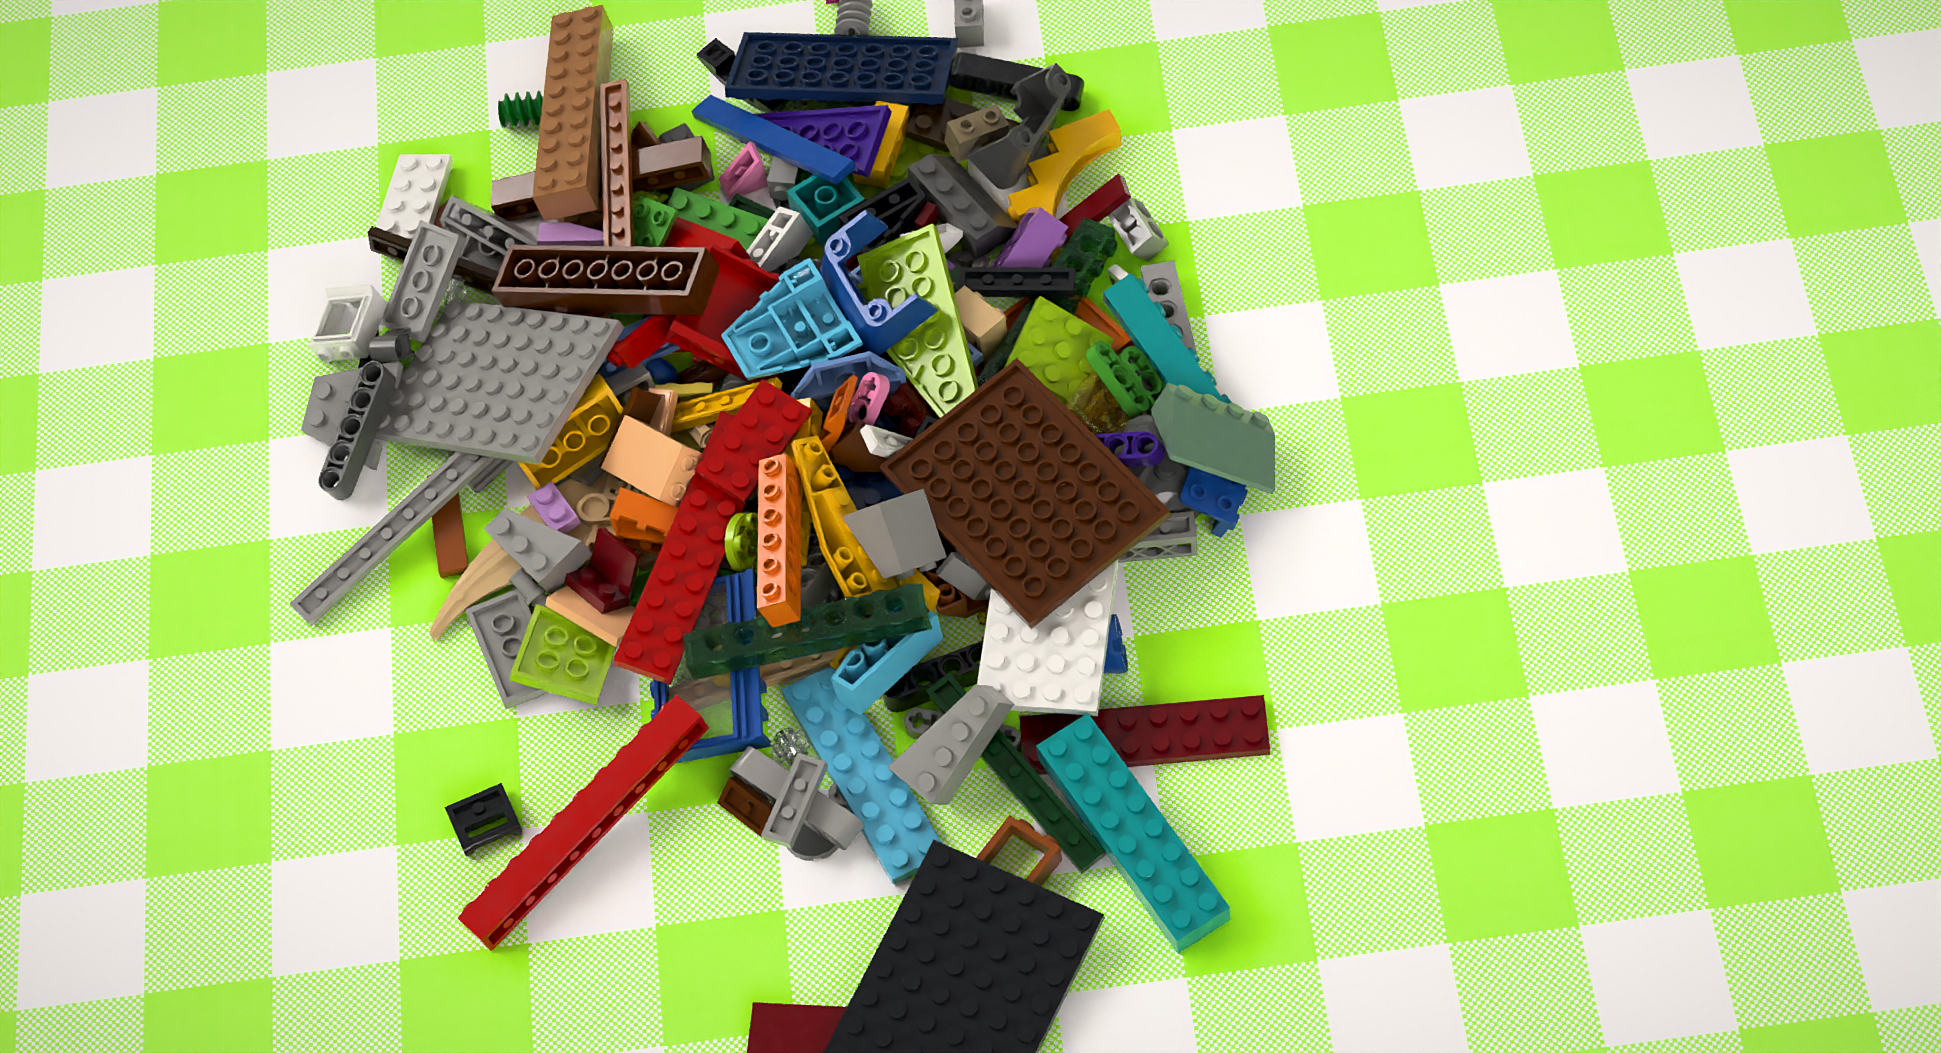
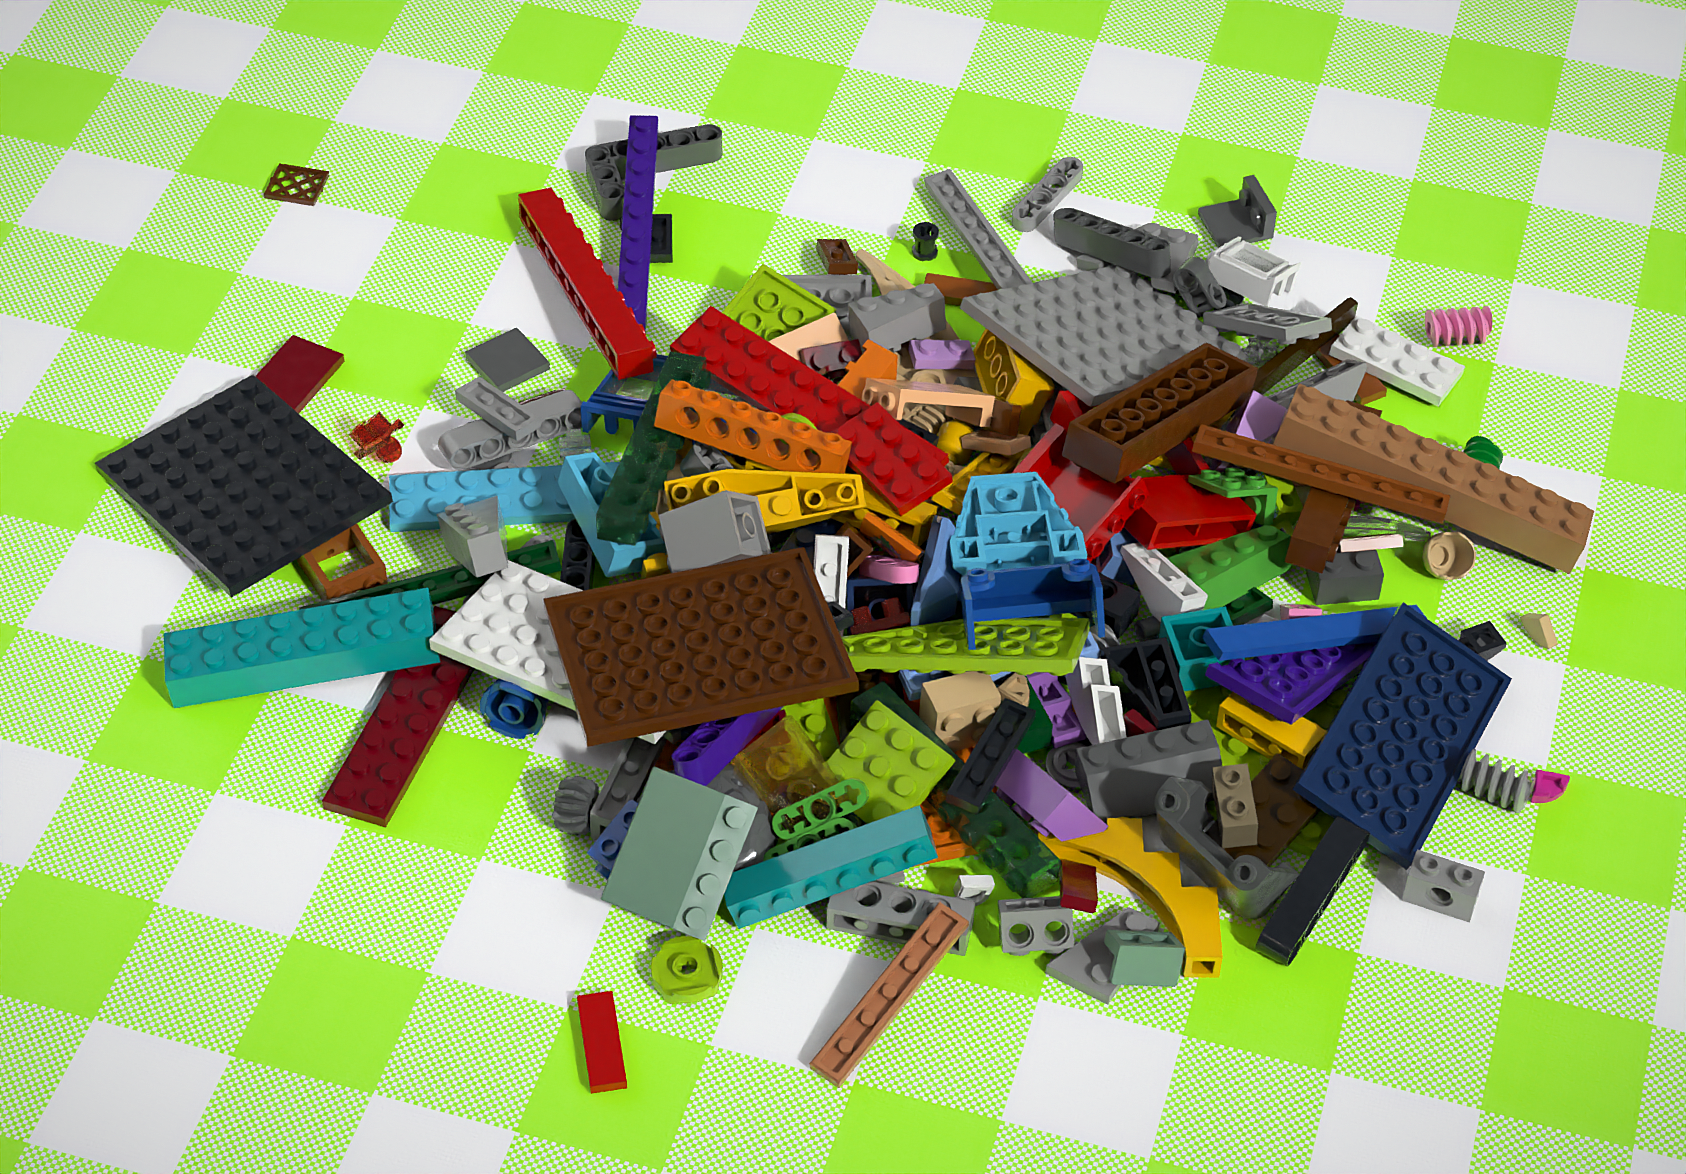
camera: 105 degrees right, 10 degrees down
(268, 361) = (1247, 217): none -> dark grey bracket
(284, 528) = (1052, 196): none -> light grey beam
(355, 166) = (1458, 325): none -> bright pink piece
(371, 872) = (675, 151): none -> dark grey beam
(398, 587) = (925, 246): none -> black bush
(450, 646) = (837, 256): none -> reddish brown plate
(457, 829) = (638, 214): none -> dark purple plate
(640, 101) = (1449, 555): none -> tan hair
(680, 31) = (1540, 629): none -> tan tile
(696, 863) = (507, 360): none -> dark grey tile
(857, 904) = (376, 436): none -> clear red hips
(1125, 156) = (1144, 958): none -> sand green panel
(1144, 186) = (1090, 961): none -> light grey wing
(1186, 558) = (573, 805): none -> dark grey gear
(1246, 291) = (888, 995): none -> nougat tile
(1306, 435) = (691, 987): none -> lime plate
(1380, 459) = (601, 1042): none -> red tile

